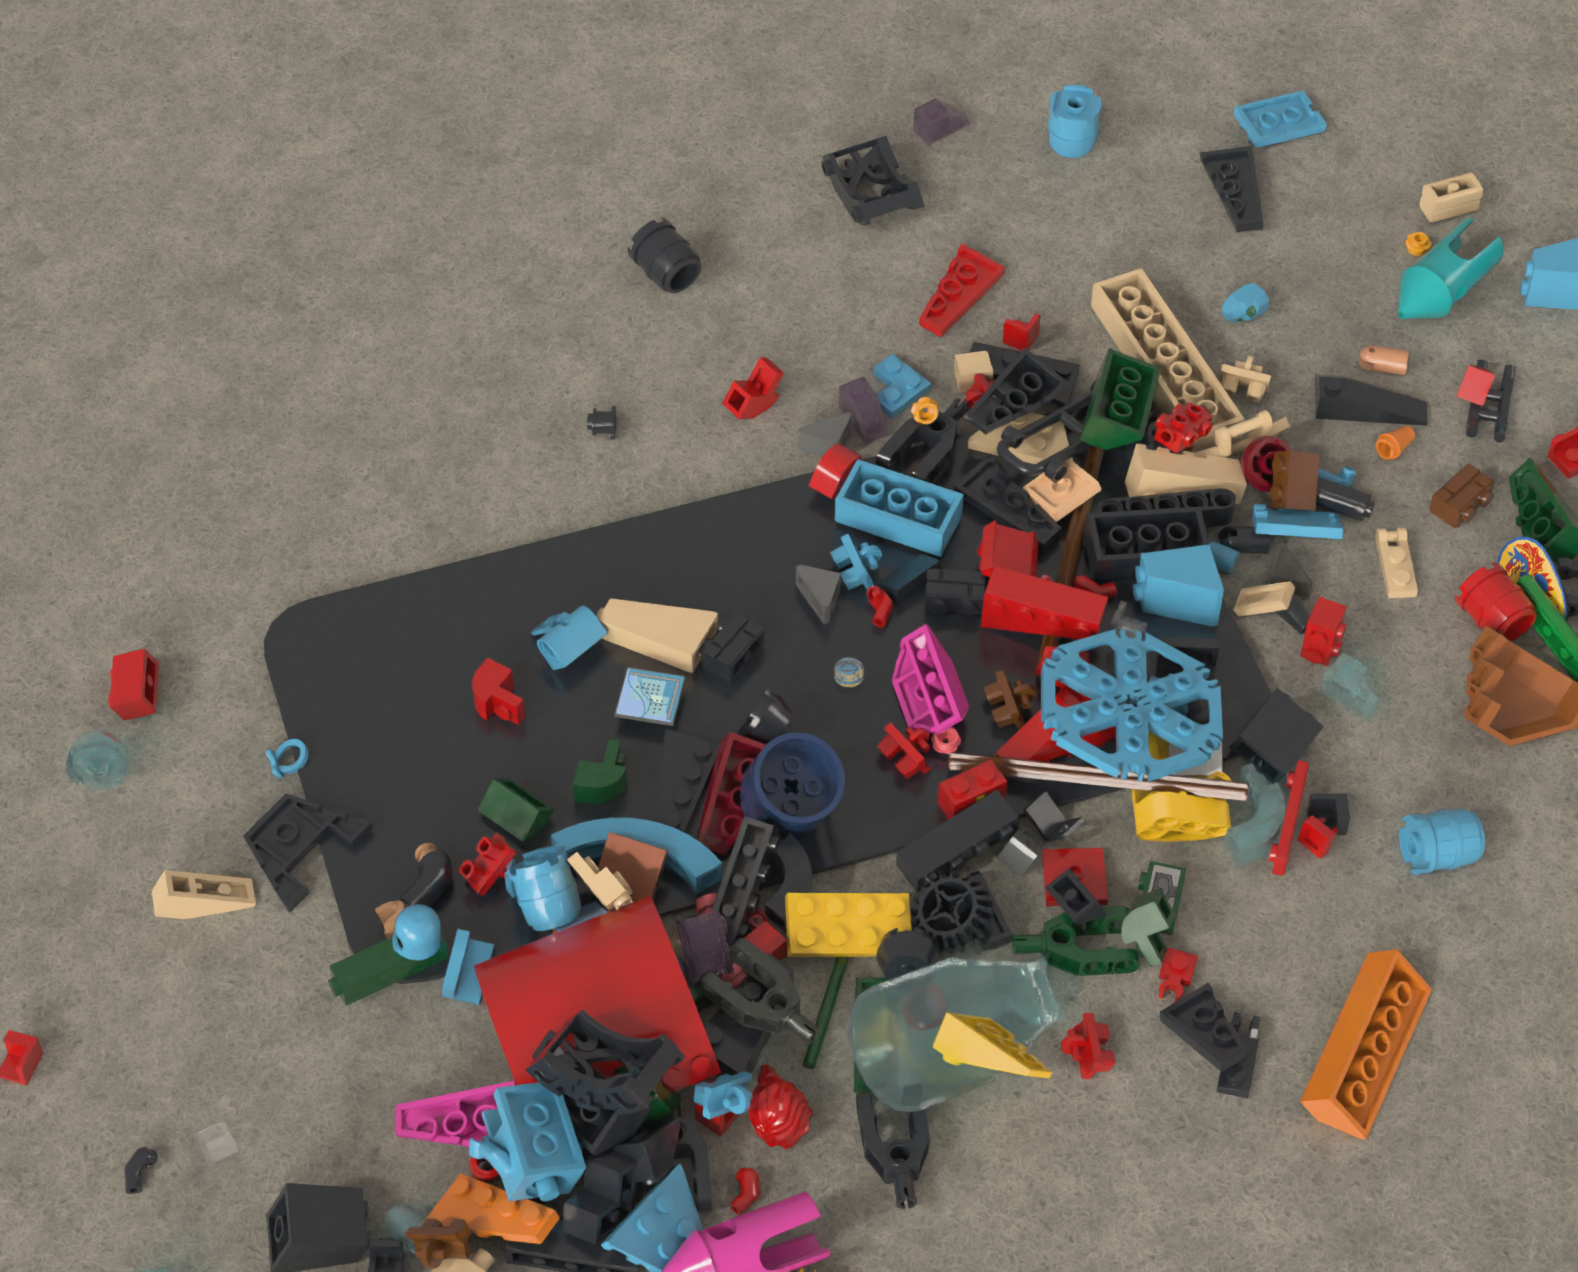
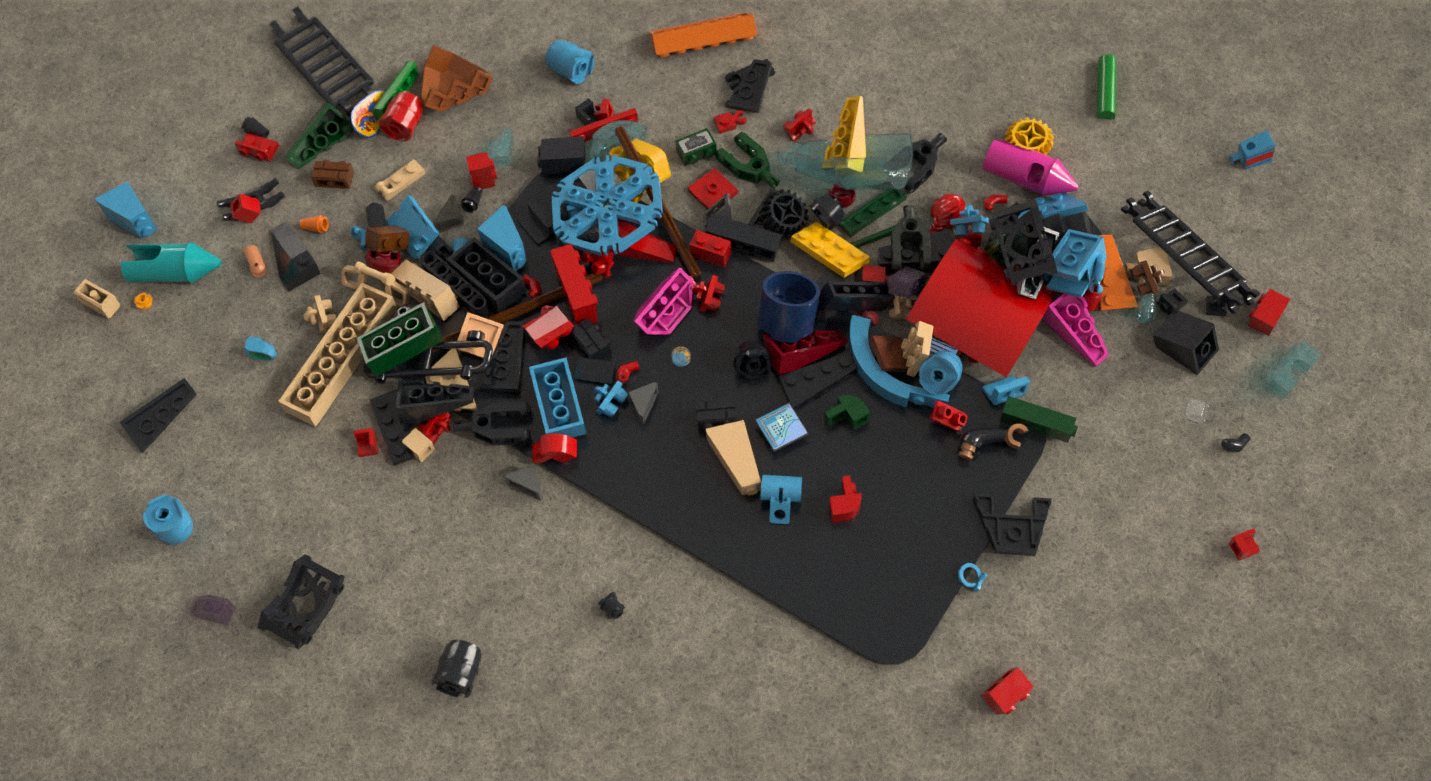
camera: 125 degrees left, 10 degrees up
(97, 760) = (1064, 666): clear light blue cylinder -> none
(197, 894) = (1086, 542): tan slope -> none
(418, 931) = (1021, 398): dark azure helmet -> none
(515, 809) = (902, 436): dark green brick -> none
(757, 394) = (525, 542): red brick -> none
(864, 408) = (492, 480): clear purple slope -> none
(902, 383) = (454, 474): dark azure plate -> none
(928, 416) = (482, 426): light orange plate -> none
(964, 284) = (354, 498): red wing -> none
(1002, 690) = (635, 278): reddish brown hips -> none
(1049, 819) = (690, 216): bracket -> none
(1075, 898) = (733, 170): black slope -> none
(1130, 625) = (544, 253): clear panel -> none
(1143, 923) = (722, 132): brick -> none
(1184, 426) = (398, 294): red brick -> none
(1264, 599) = (476, 209): tan tile -> none
(1279, 119) = (80, 427): dark azure piece -> none

